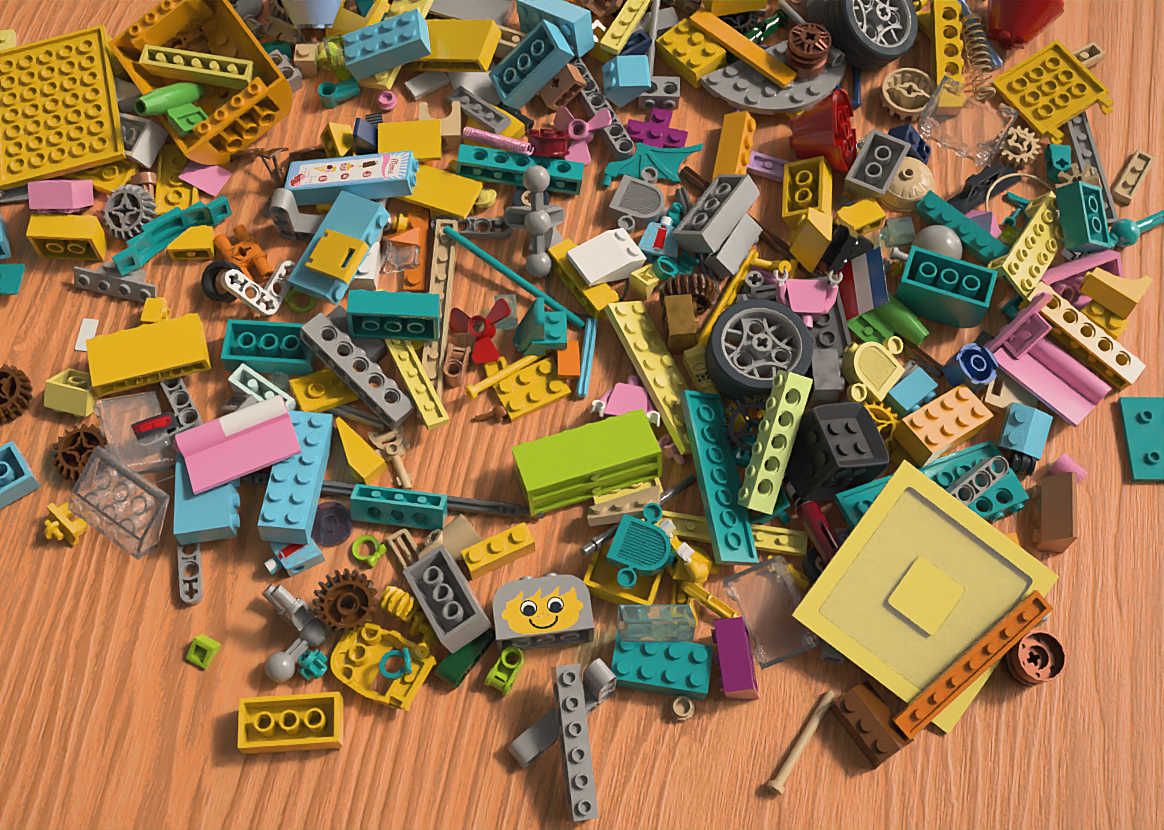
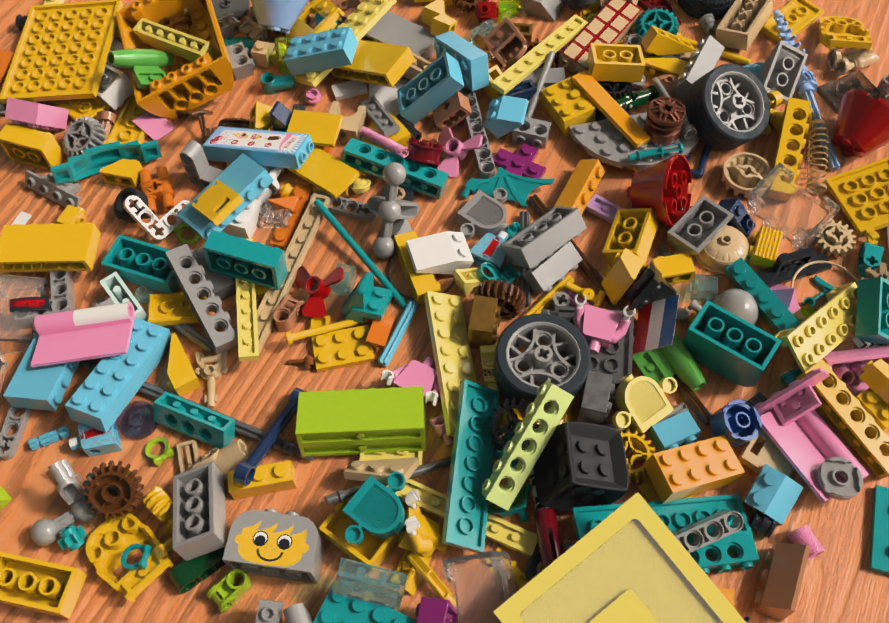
camera: 20 degrees right, 5 degrees down
(237, 568) = (49, 437): none -> medium azure axle
(486, 538) = (246, 470): none -> dark blue piece
(808, 89) = (655, 152): none -> teal piece
(949, 172) = (765, 247): none -> yellow brick
(1077, 407) = (834, 488): none -> light grey tile

